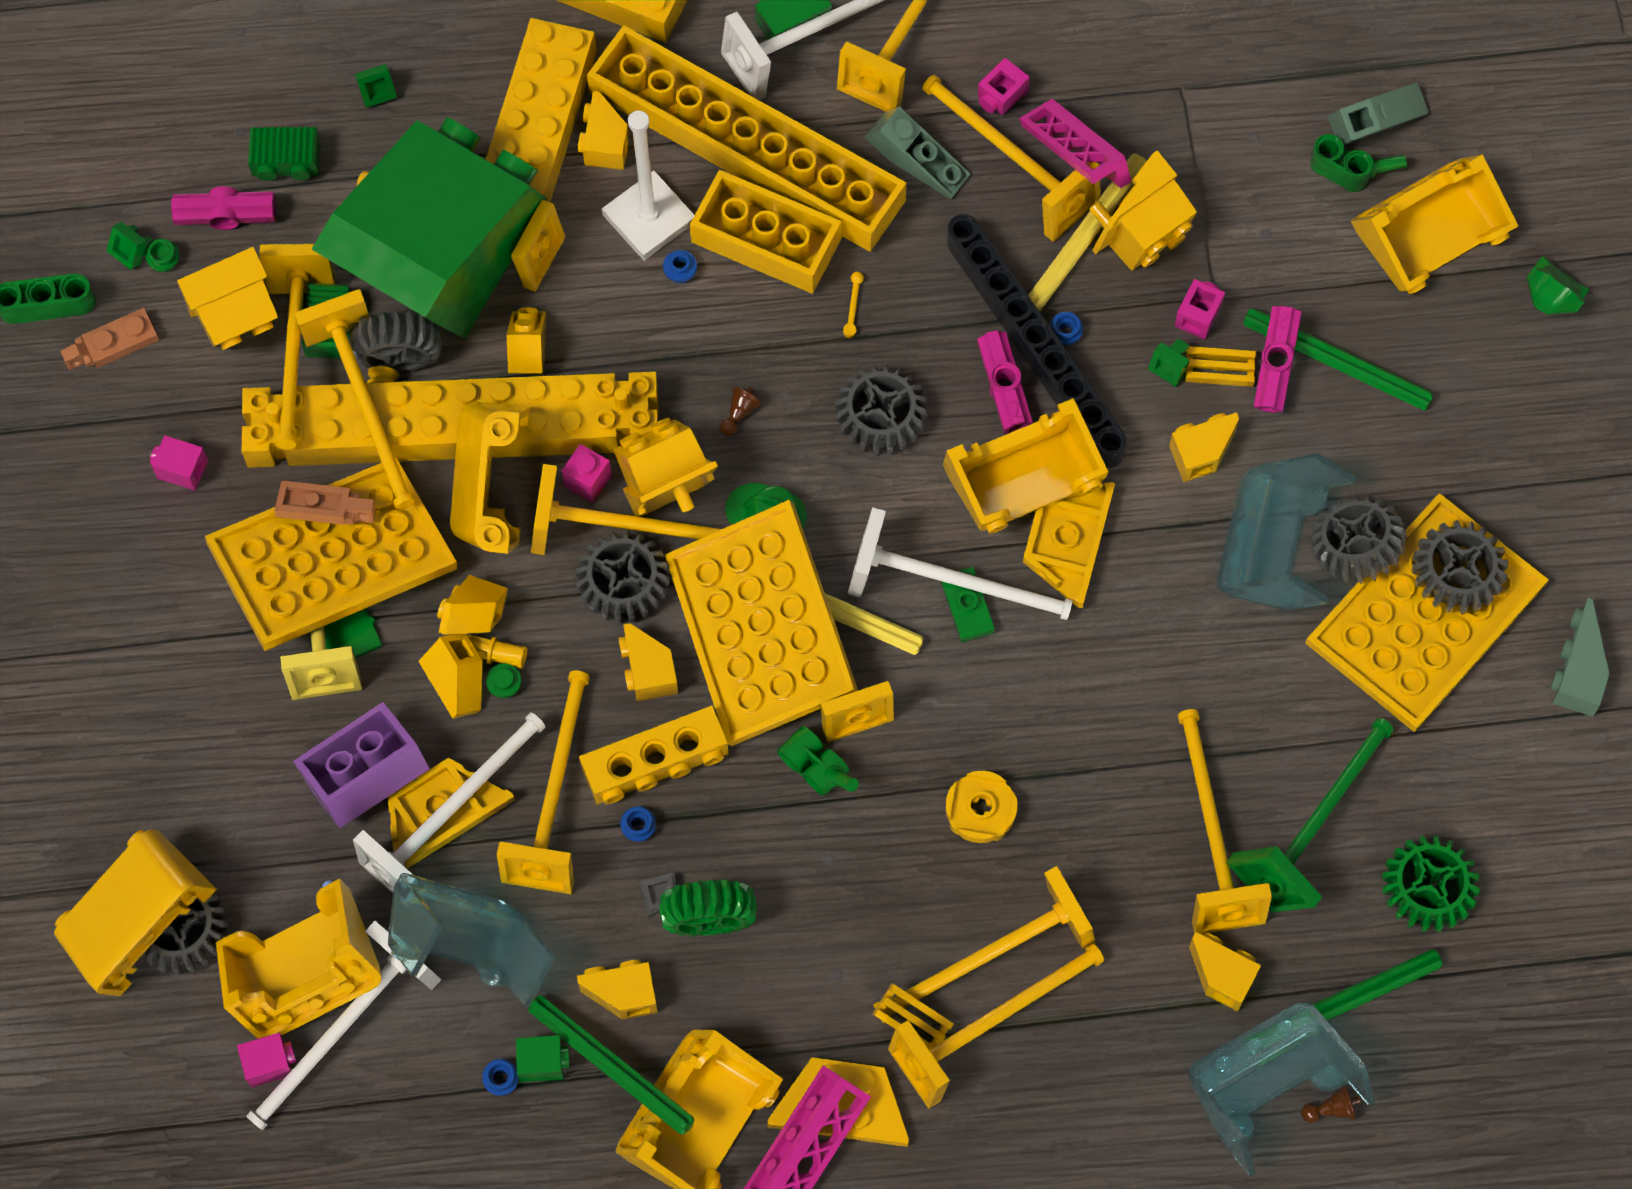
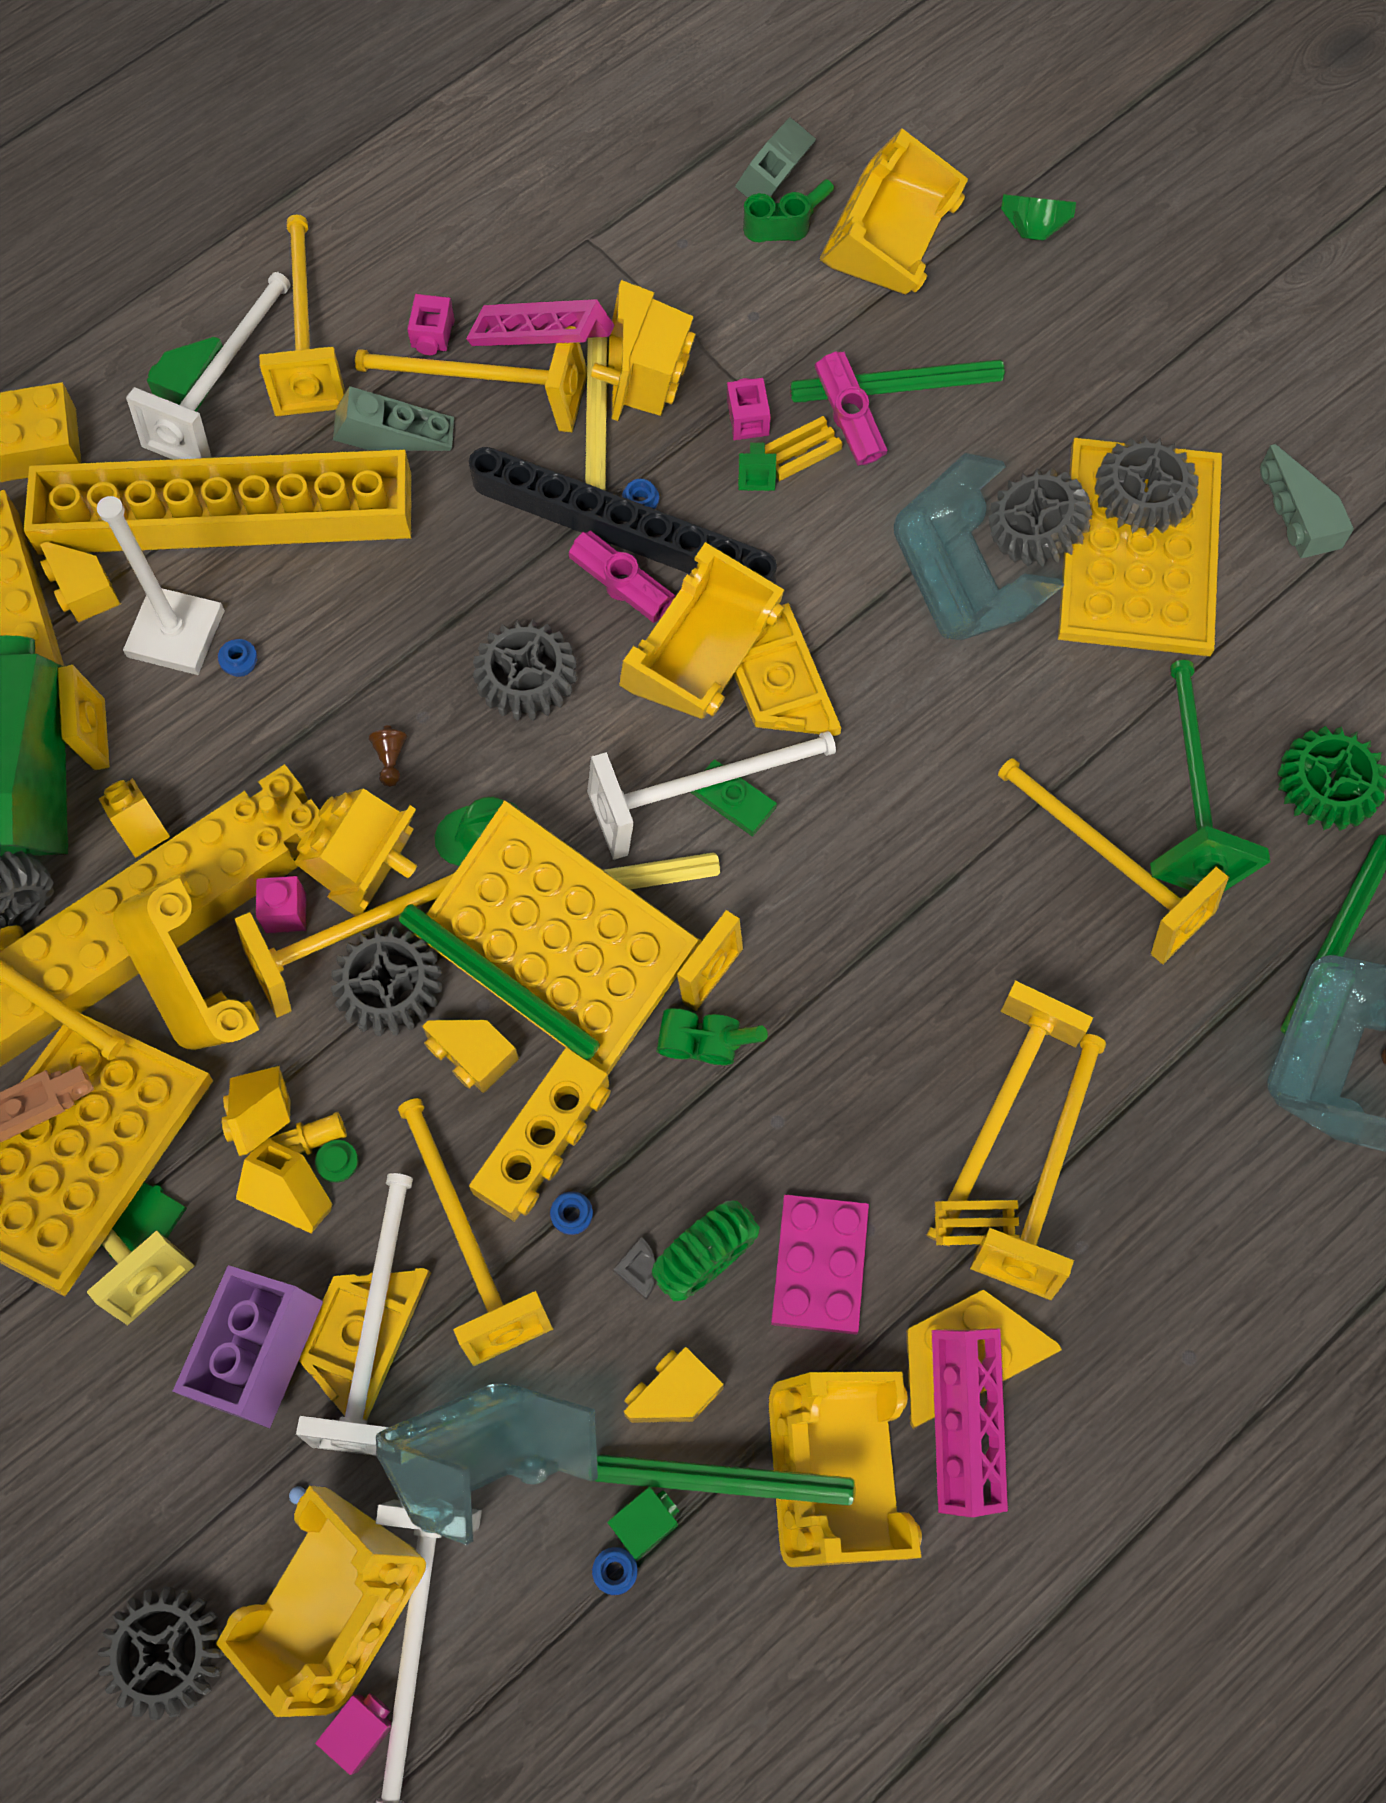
camera: 35 degrees left, 0 degrees up
(129, 910) = (97, 1680): yellow windscreen -> none
(698, 628) = (499, 982): none -> green axle
(766, 231) = (299, 574): yellow brick -> none
(784, 974) = (820, 1264): none -> dark pink plate
(849, 329) = (441, 618): yellow hinge -> none
(968, 791) = (893, 954): yellow plate -> none
(1202, 447) = (840, 525): yellow slope -> none
(1222, 972) = (1220, 980): yellow slope -> none

